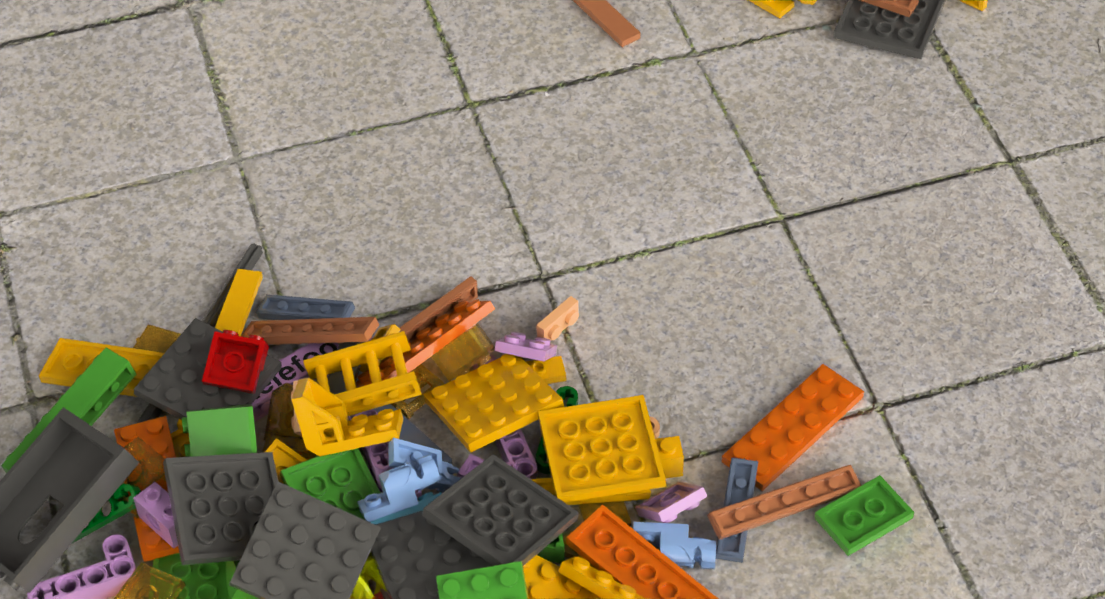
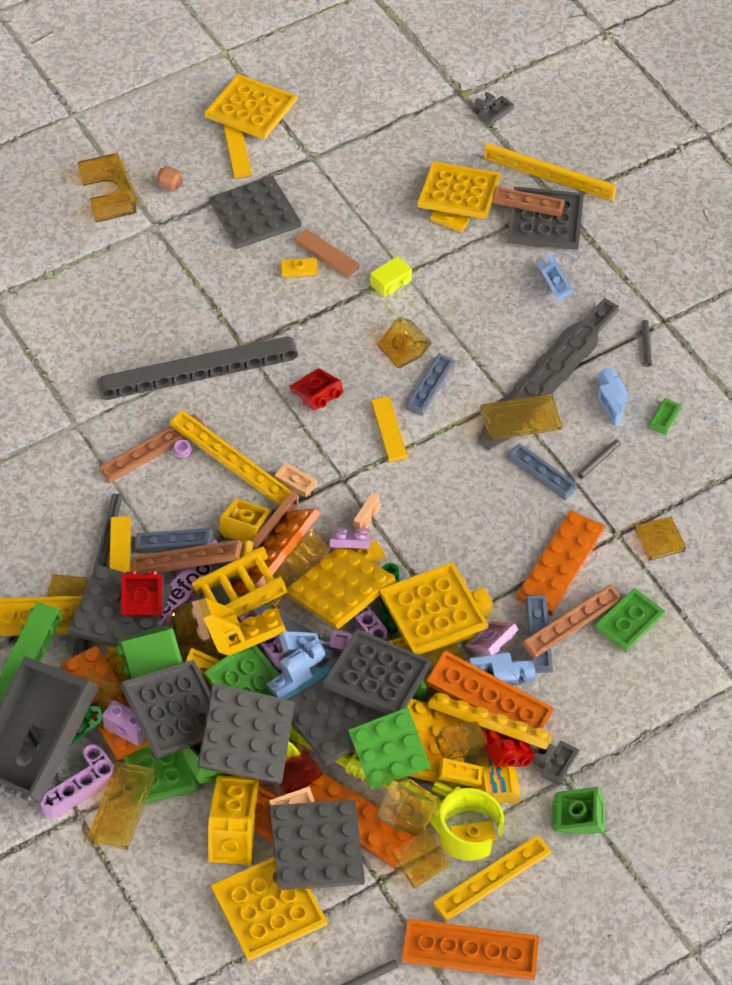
camera: 15 degrees left, 5 degrees up
(319, 200) = (142, 453): none -> nougat tile
(354, 206) = (182, 449): none -> lavender plate
(398, 300) = (243, 520): none -> yellow slope
(404, 118) = (197, 368): none -> dark grey beam
(408, 225) = (230, 457): none -> yellow tile
(482, 266) = (296, 479): none -> light nougat plate
(542, 165) = (317, 389): none -> red plate
(566, 26) = (299, 267): none -> yellow plate
(619, 228) = (389, 429): none -> yellow tile
(668, 129) = (404, 342): none -> clear yellow slope
(675, 52) = (391, 276): none -> neon yellow brick
(687, 184) = (430, 384): none -> sand blue tile
(790, 240) = (521, 417): none -> clear yellow tile
(800, 312) = (542, 471): none -> sand blue tile
(842, 196) = (559, 361): none -> dark grey plate
(879, 309) = (598, 459): none -> piece
(881, 84) = (555, 277): none -> light blue plate
(918, 233) = (612, 394): none -> light blue plate
(933, 421) = (660, 538): none -> clear yellow plate
(980, 182) = (646, 343): none -> dark grey piece
(981, 273) = (665, 416): none -> bright green tile

